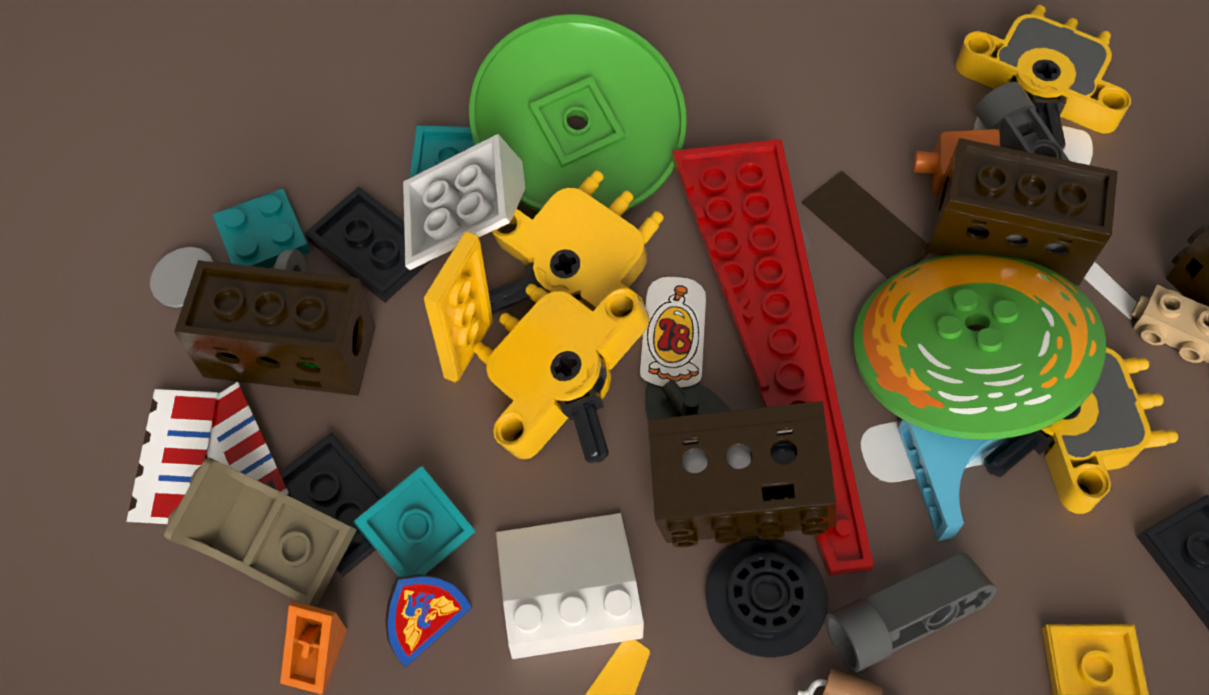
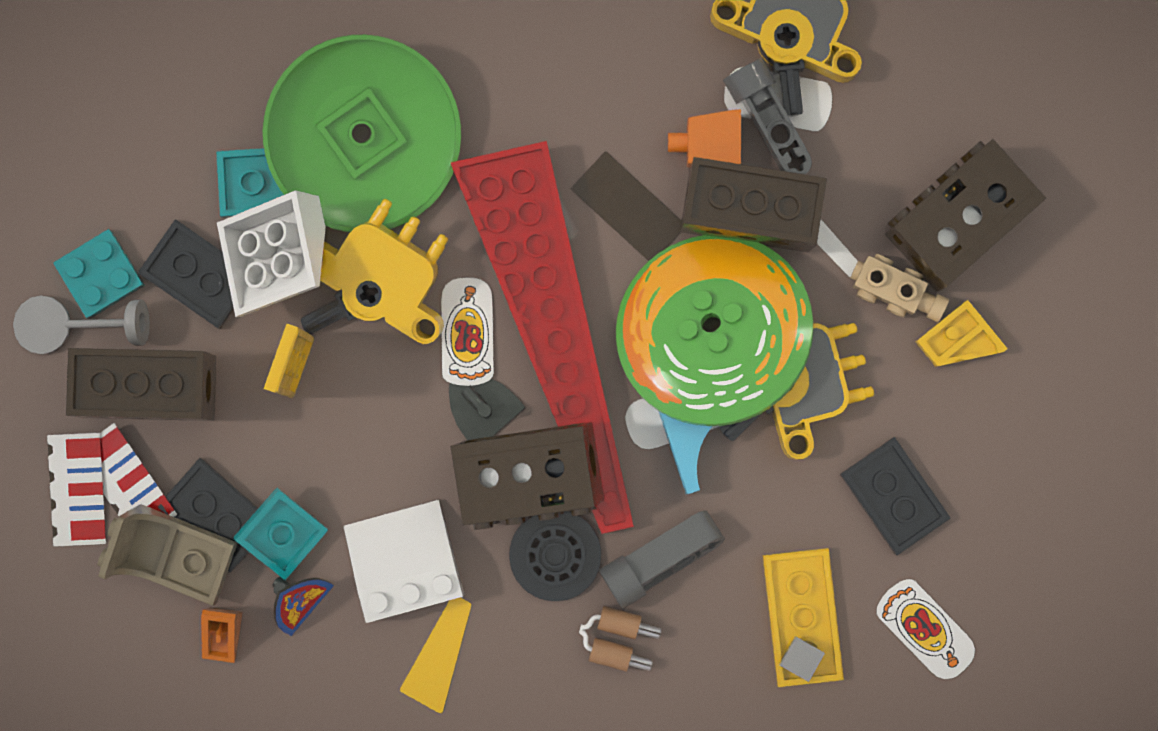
camera: 10 degrees left, 25 degrees up
(560, 367) = (357, 386): yellow piece -> none

